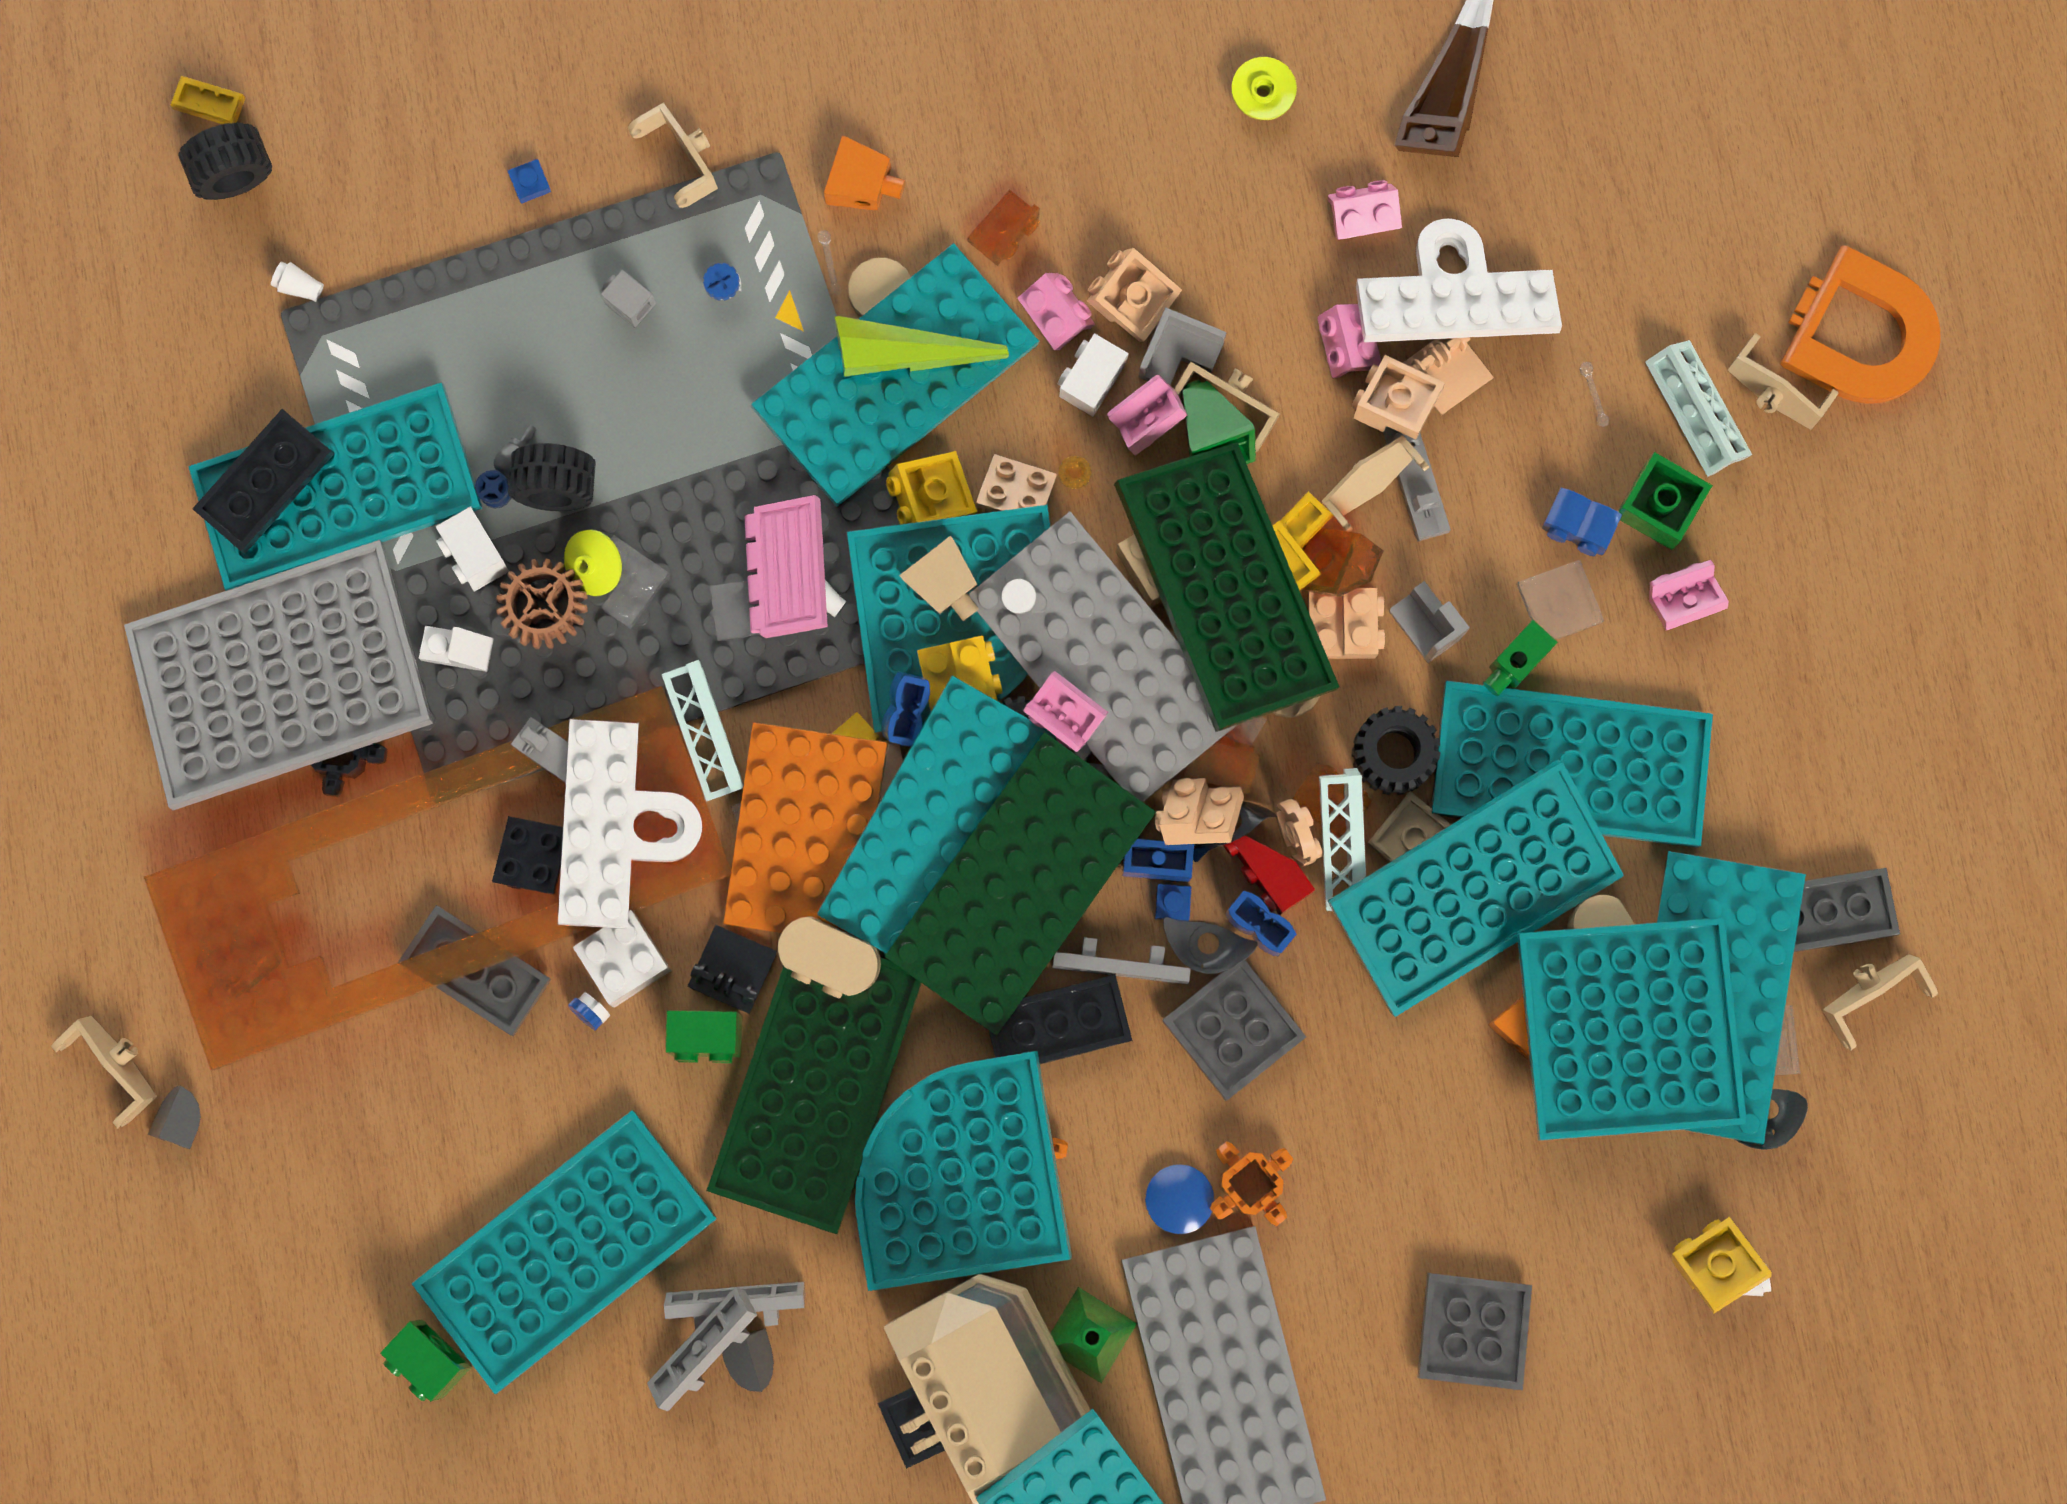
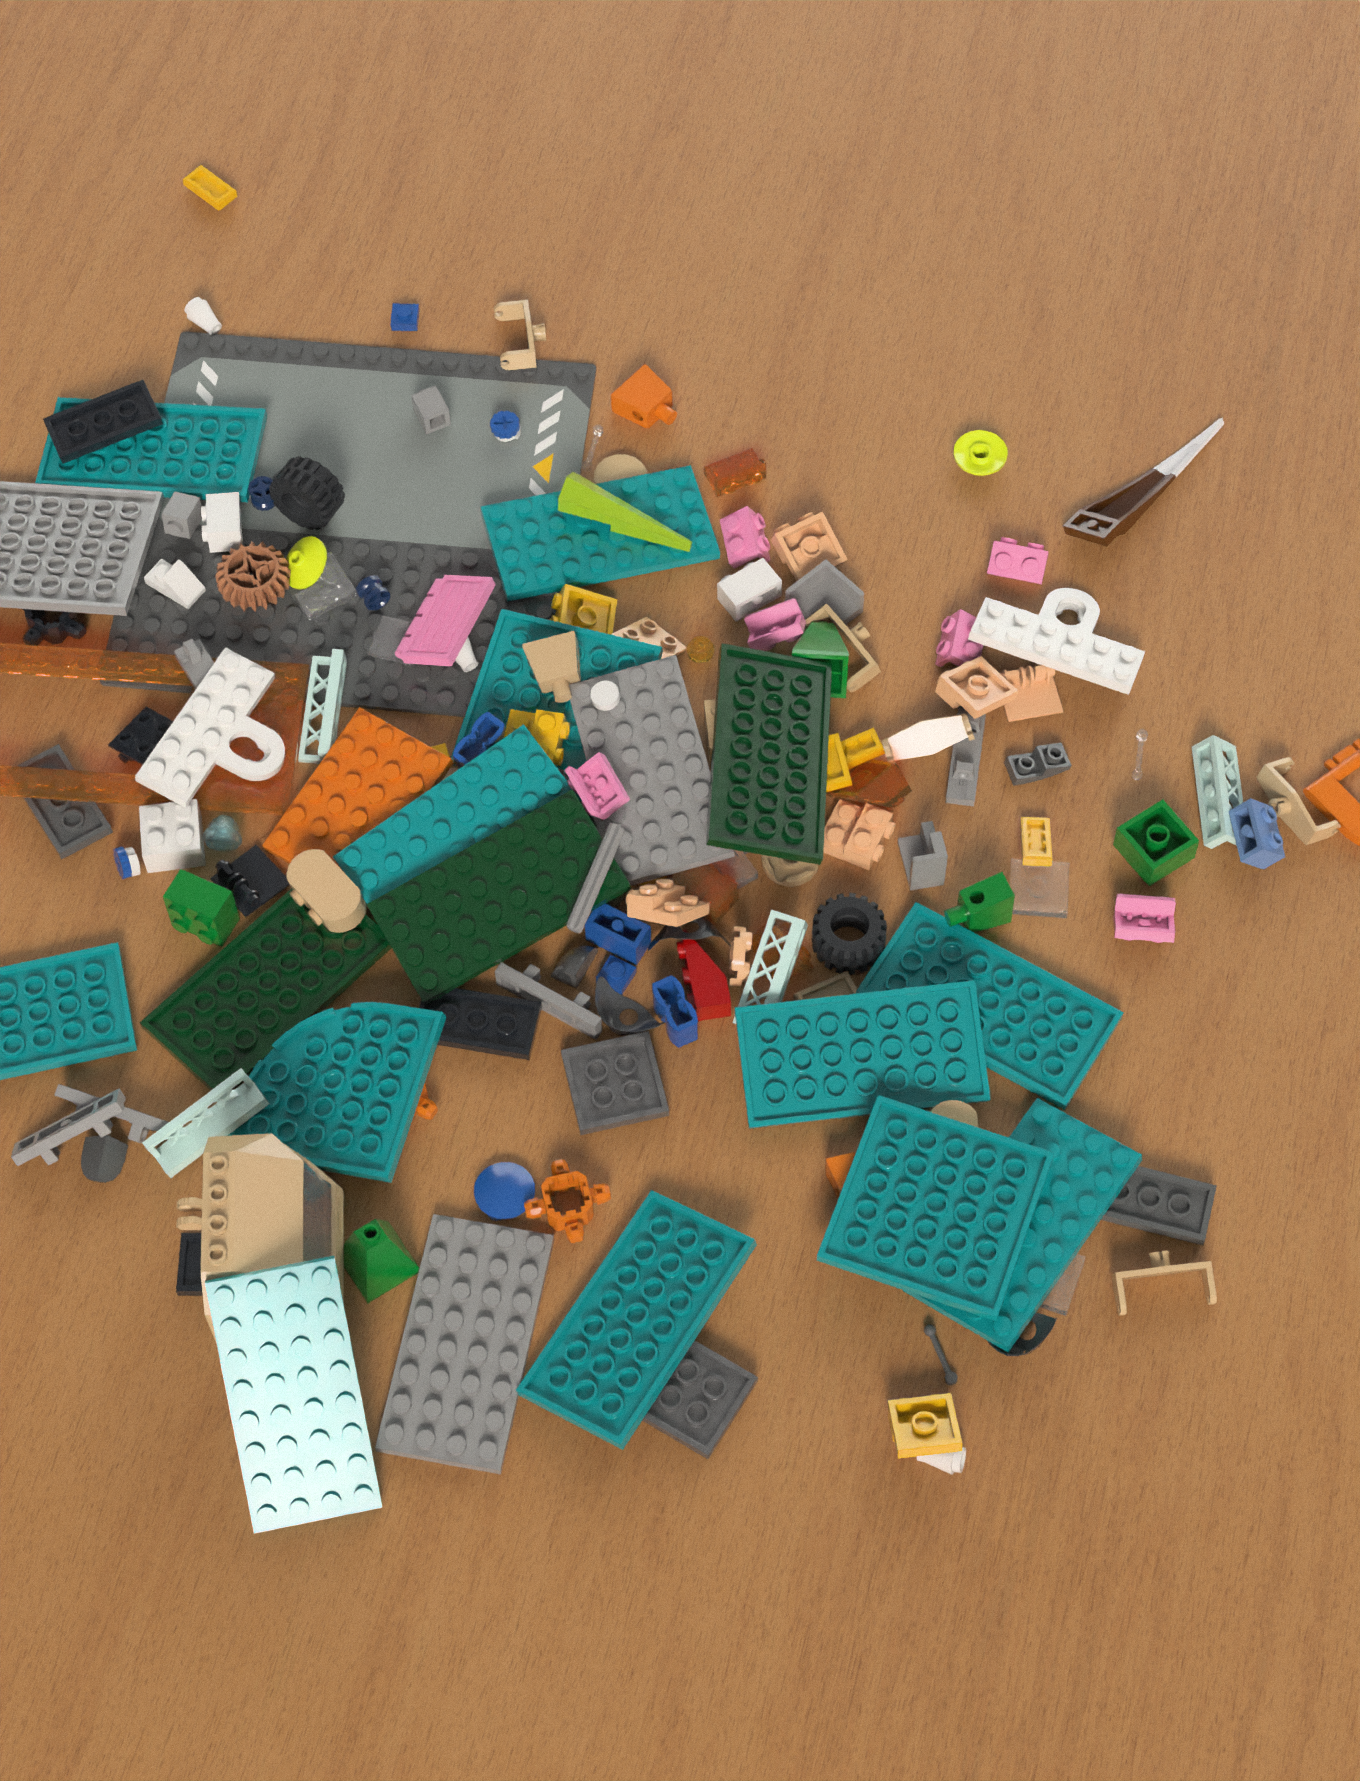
camera: 30 degrees right, 20 degrees down
(225, 161) = (197, 219): black tyre -> none
(419, 561) = (182, 515): none -> light grey brick
(675, 930) = (223, 834): none -> clear light blue cone
(687, 565) = (373, 593): none -> dark blue wheel
(842, 1275) = (229, 1113): none -> light aqua fence
(1120, 825) = (595, 878): none -> light grey axle
(1123, 910) = (574, 965): none -> dark grey brick
(1385, 1280) = (636, 1319): none -> teal plate
(1494, 454) = (1035, 766): none -> dark grey slope
(1536, 551) = (1036, 841): none -> yellow plate
(1581, 522) = (1083, 835): blue brick -> none
(1713, 1191) = (950, 1377): none -> dark grey hinge
(1761, 443) = (1257, 834): none -> medium blue brick

